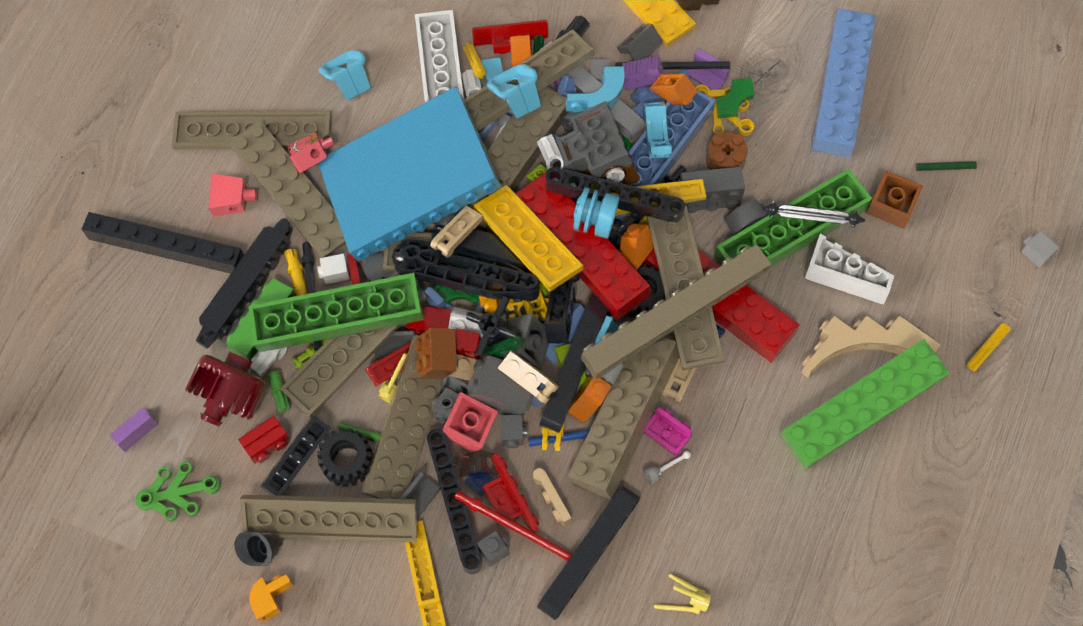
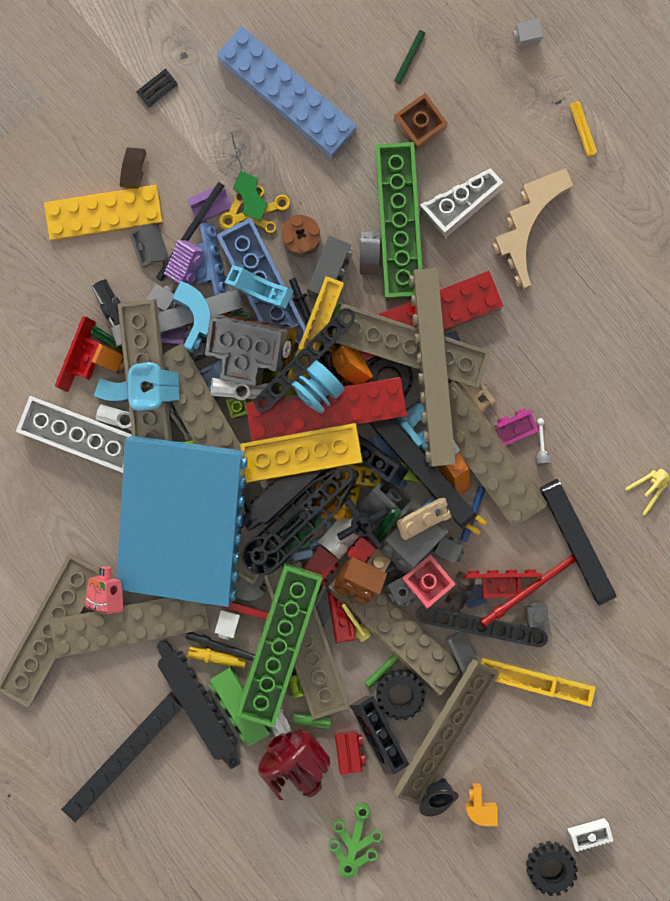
camera: 60 degrees left, 20 degrees up
(133, 429) = (280, 853): medium lavender panel -> none
(229, 195) = (105, 679): coral torso -> none
(351, 79) = (47, 520): medium azure piece -> none
(456, 230) = (262, 508): tan plate -> none
(474, 60) = (89, 402): yellow axle -> none
(551, 496) = (518, 548): tan plate -> none
(566, 86) = (168, 338): medium blue tile -> none
(674, 88) = (223, 248): orange slope -> none
(813, 214) = (403, 200): wheel -> none
(864, 404) = (582, 259): bright green brick -> none

